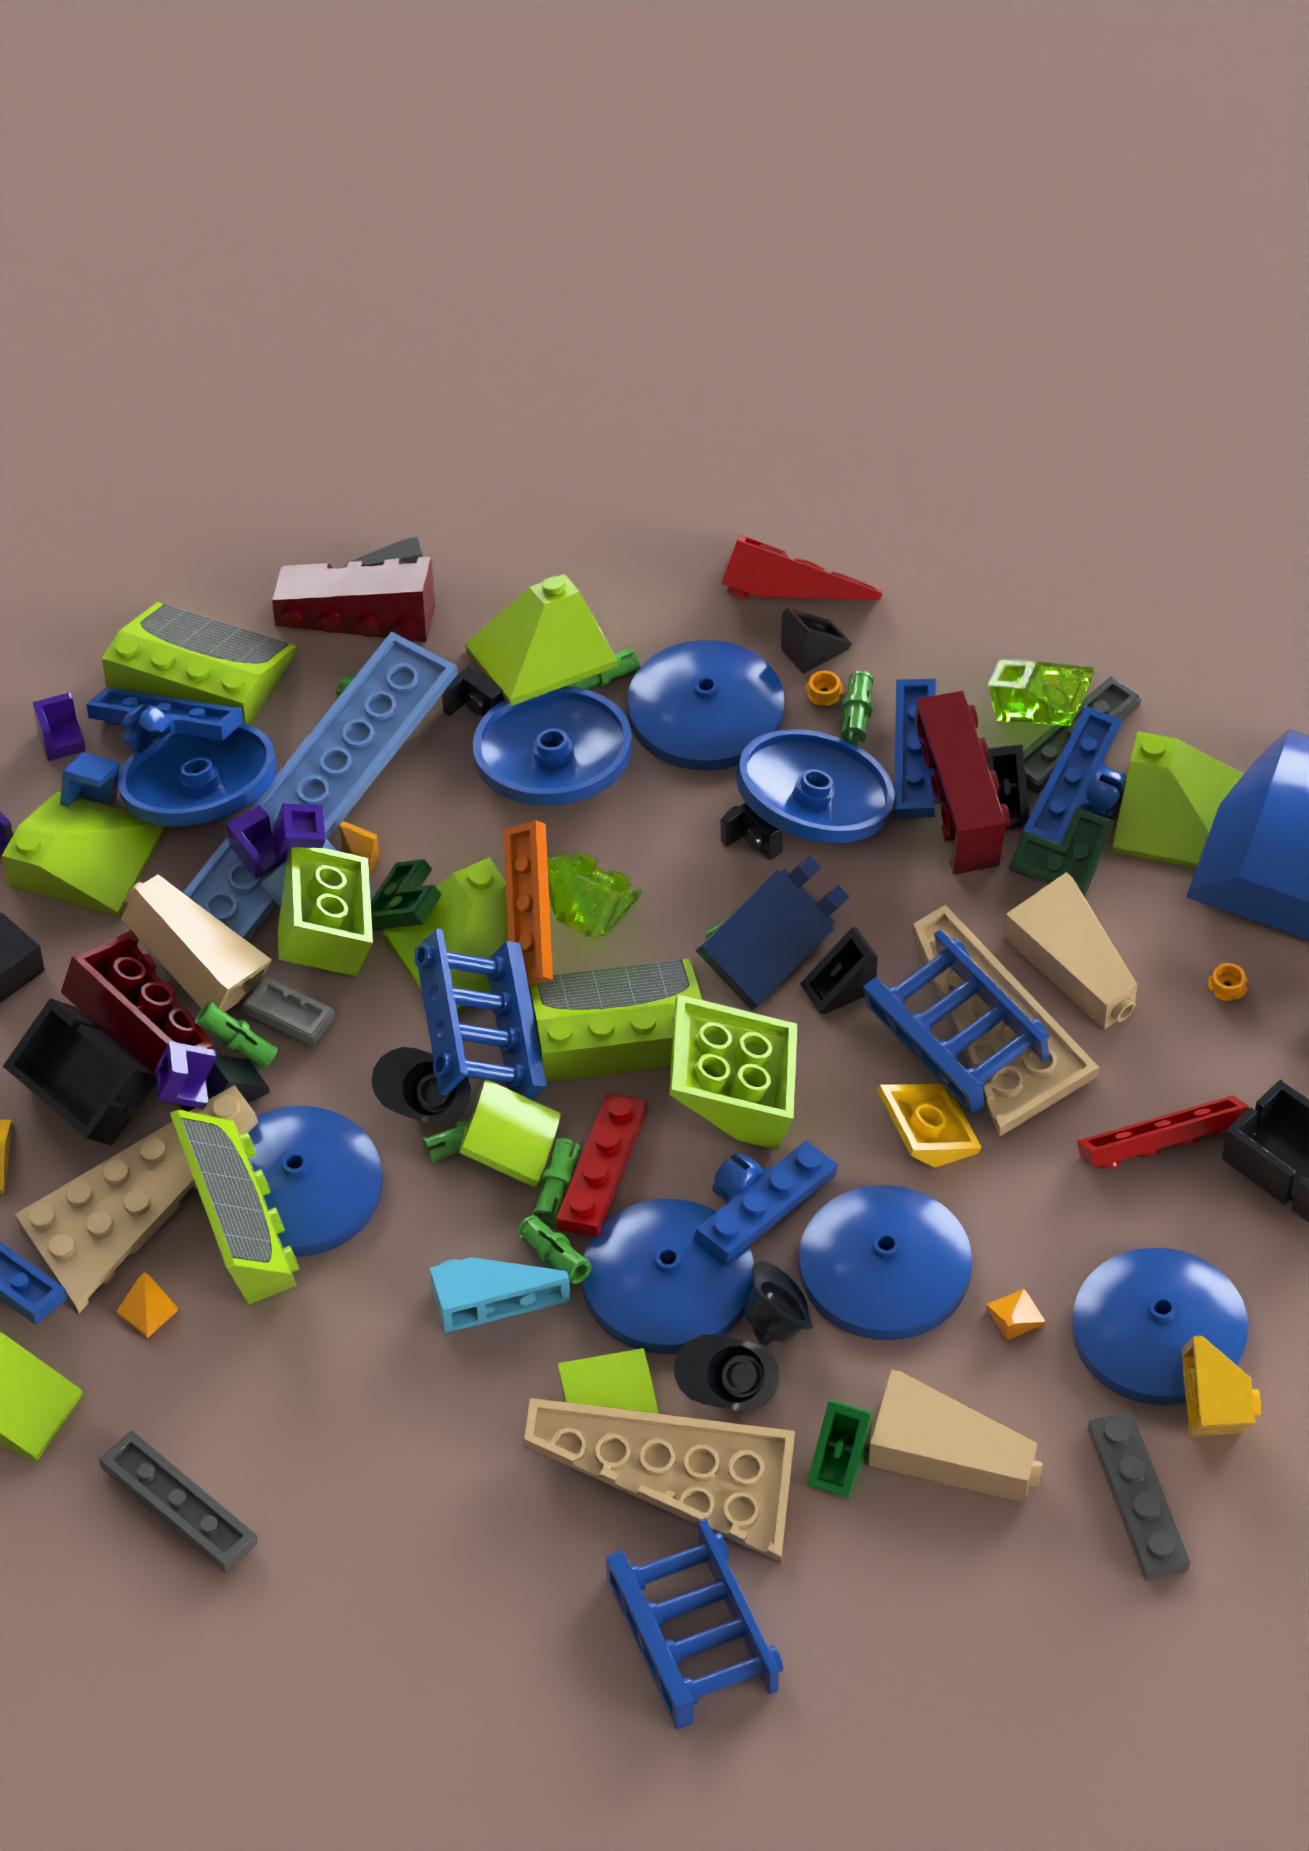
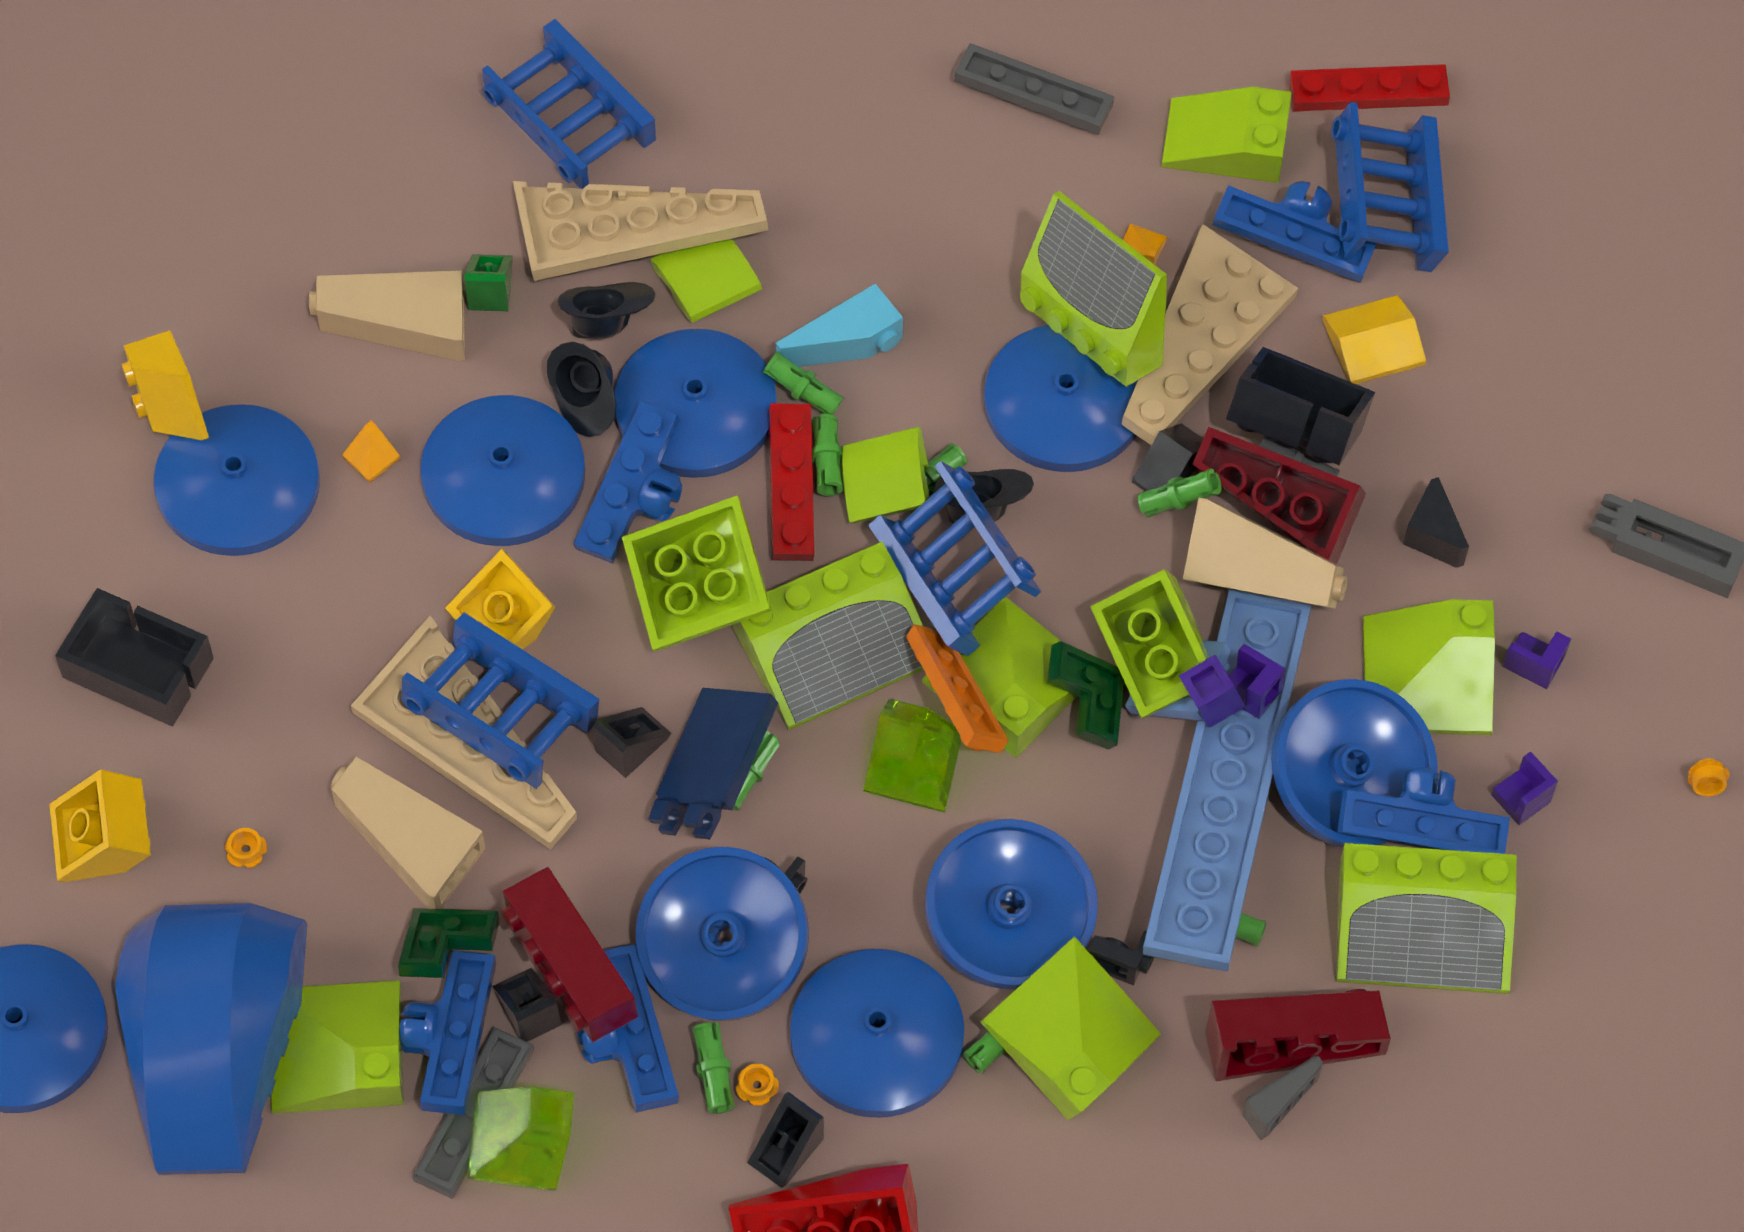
camera: 160 degrees right, 10 degrees up
(90, 777) = (1458, 726): blue panel -> none
(183, 1074) = (1199, 410): dark purple panel -> none
(289, 1011) = (1146, 551): light grey plate -> none
(360, 843) = (1160, 746): light orange slope -> none
(1138, 1495) = (222, 323): dark grey plate -> none
(1147, 1137) = (272, 660): red plate -> none

